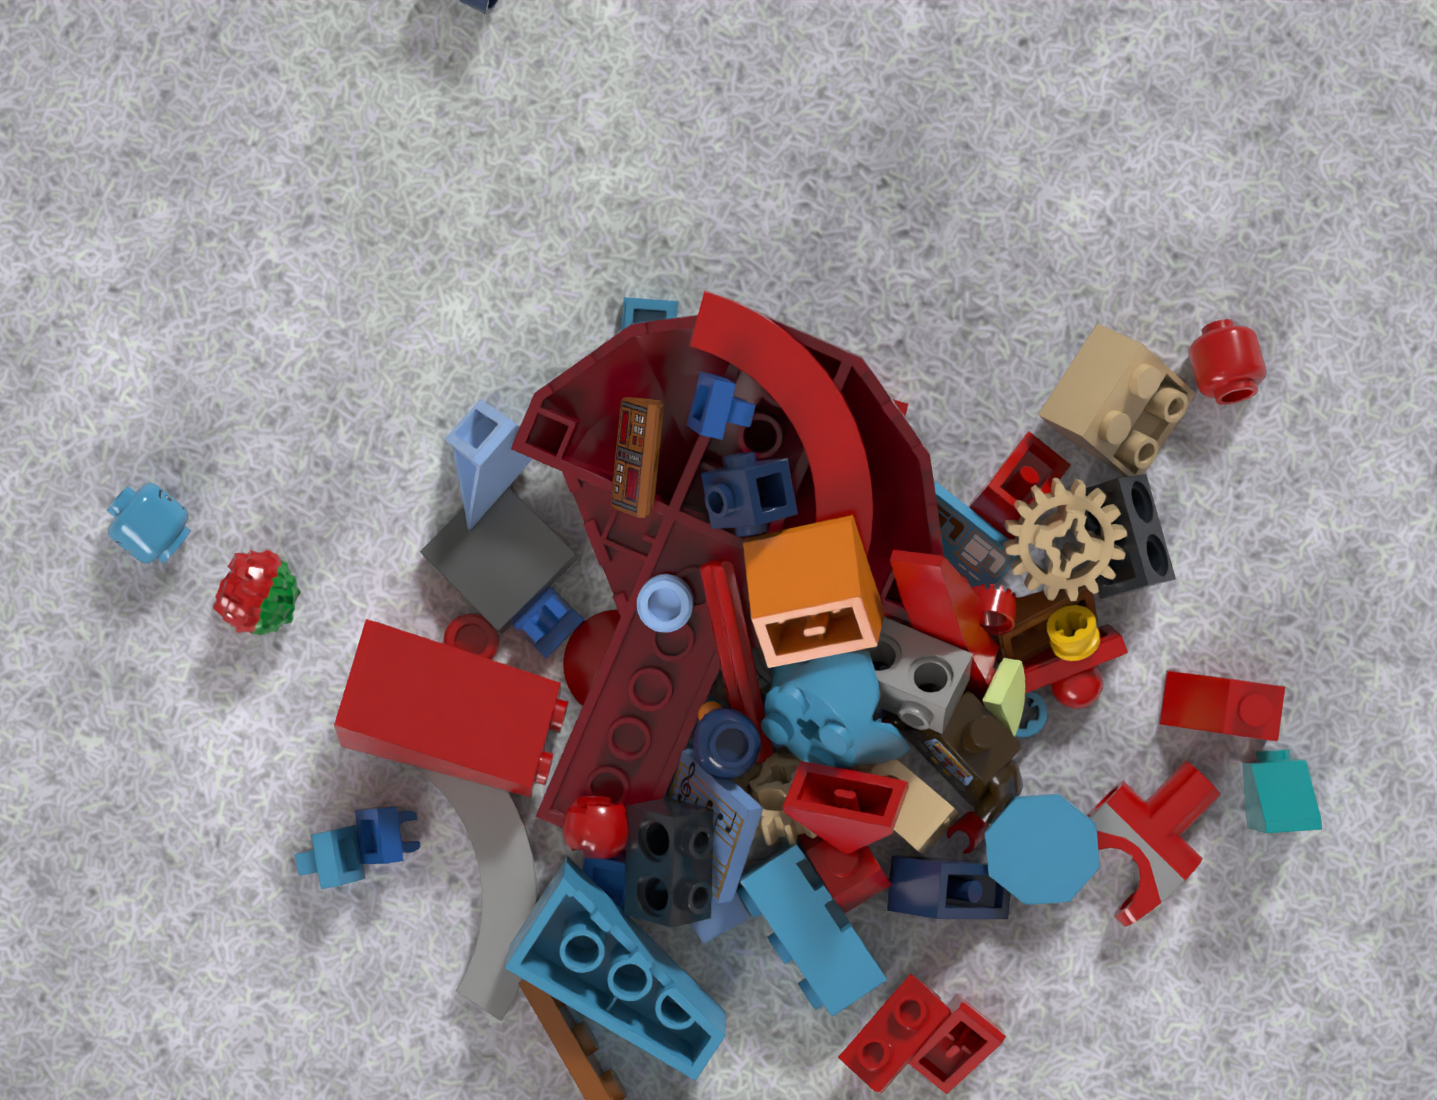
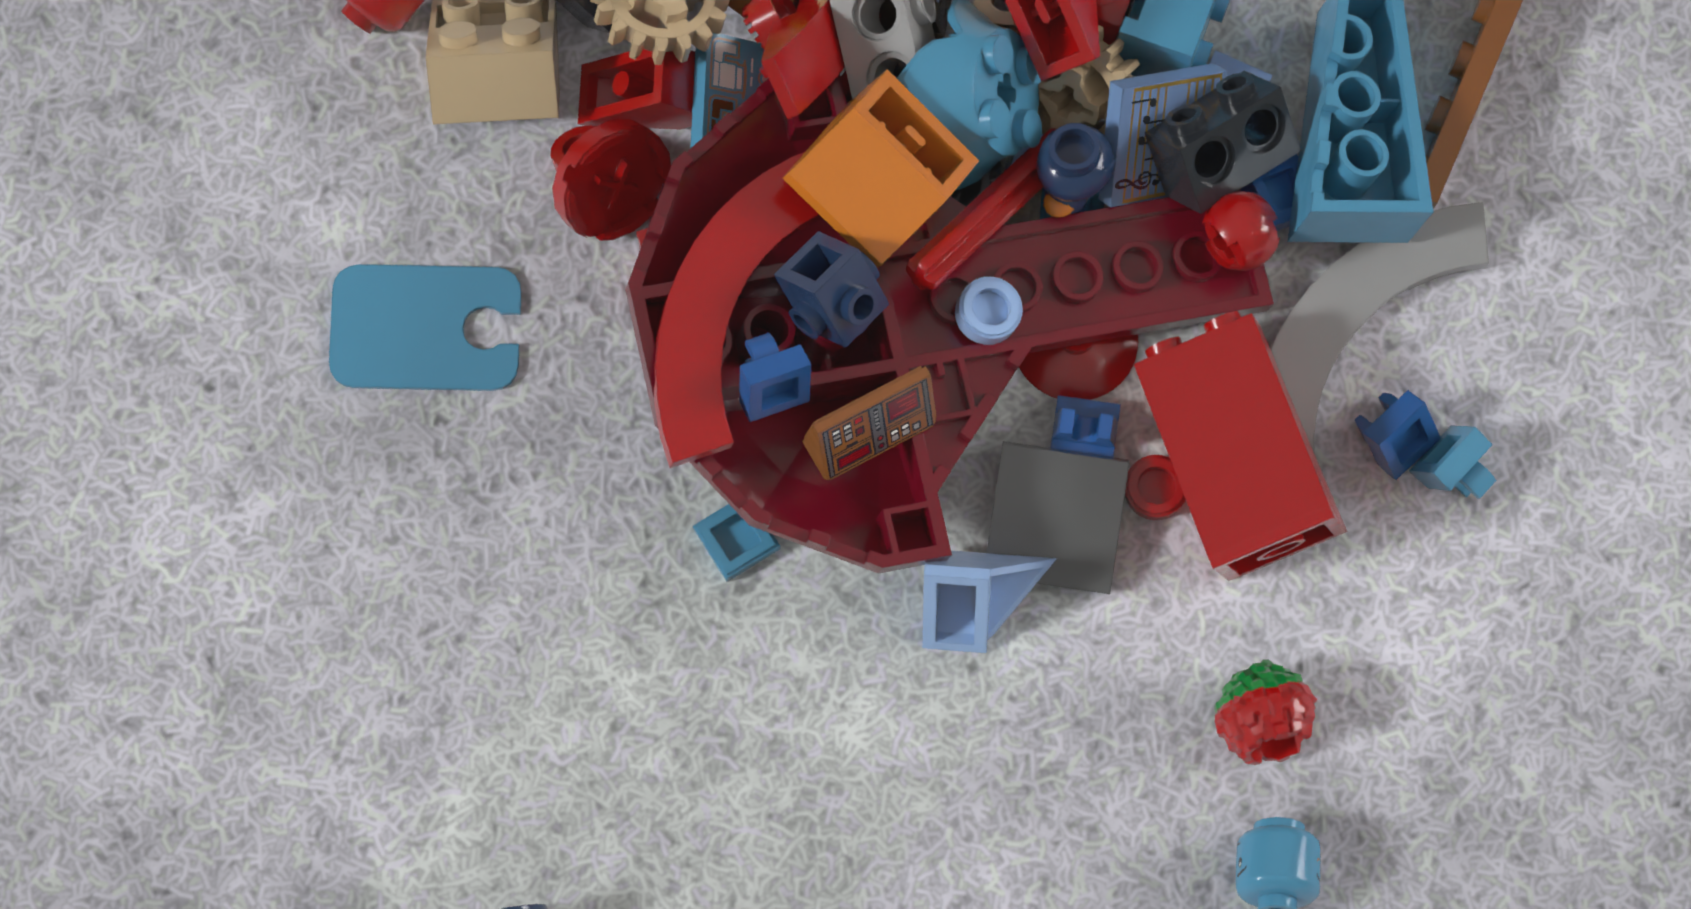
camera: 125 degrees left, 10 degrees down
(965, 206) = (408, 323): none -> dark azure piece
(965, 416) = (608, 177): none -> red tile

